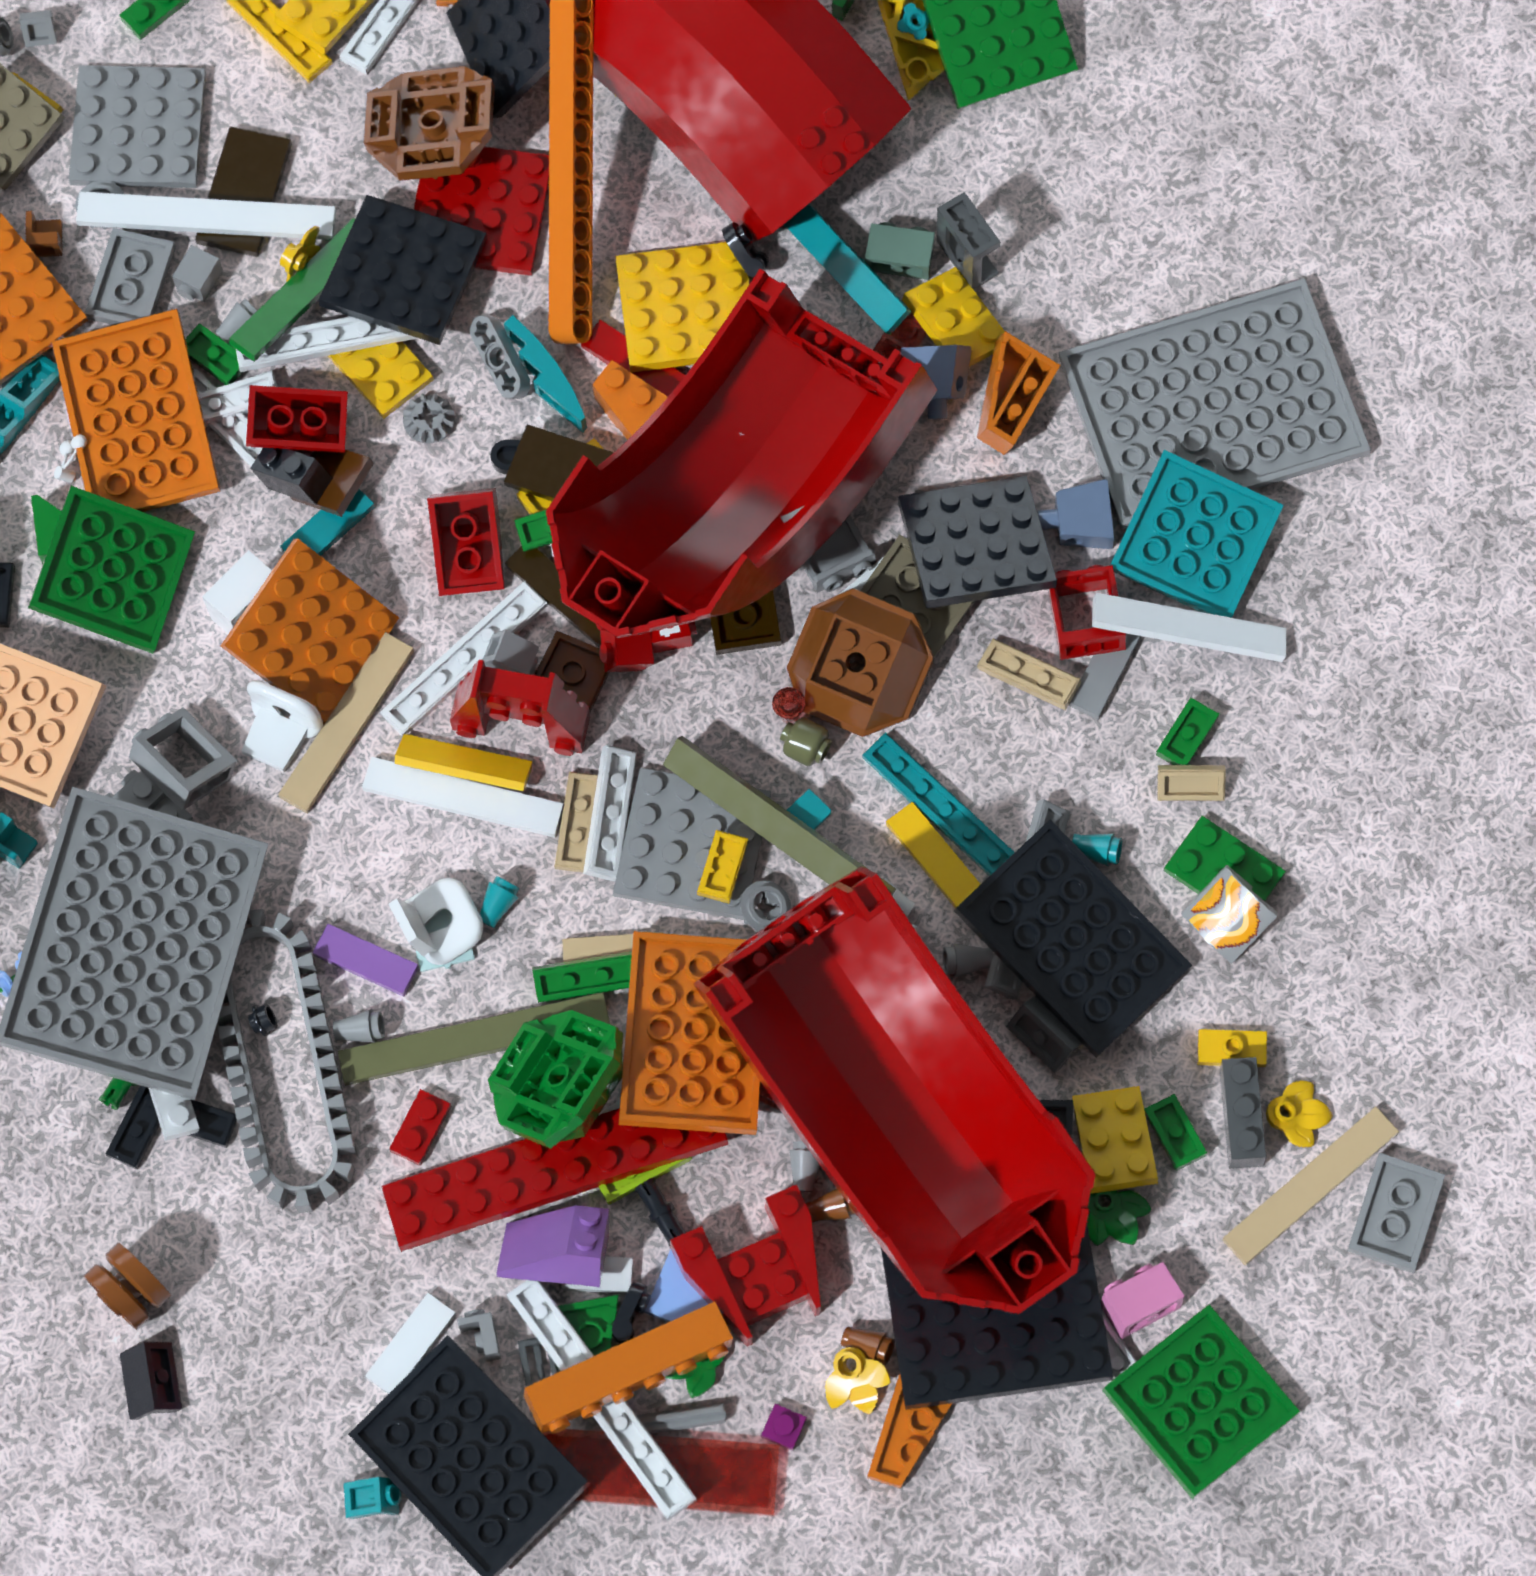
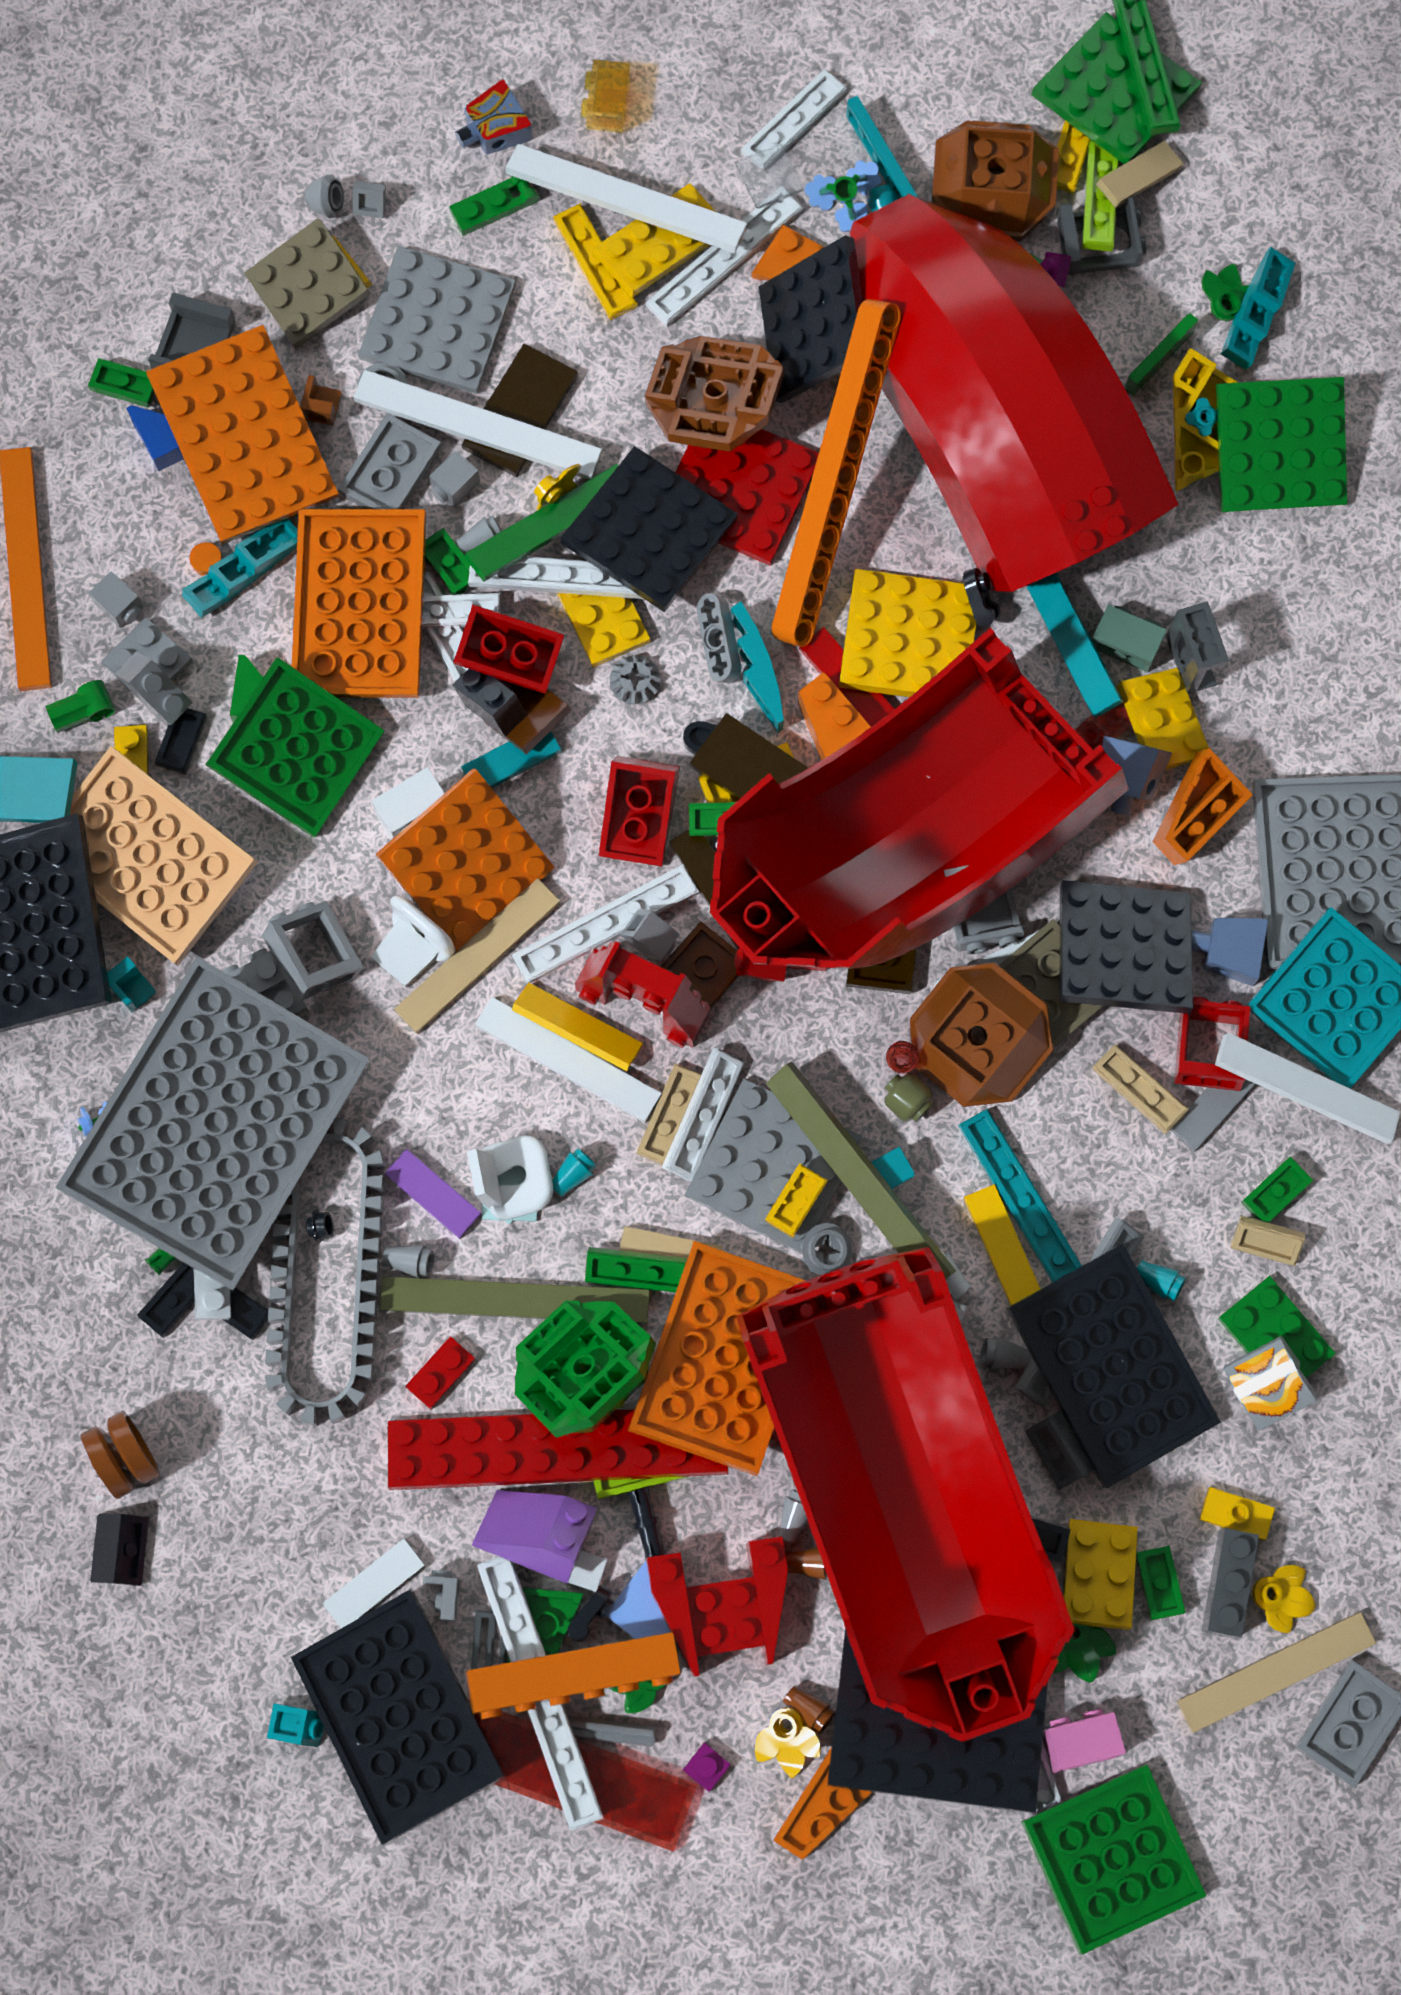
camera: 10 degrees right, 5 degrees up
(69, 448) = (286, 615): white piece -> none

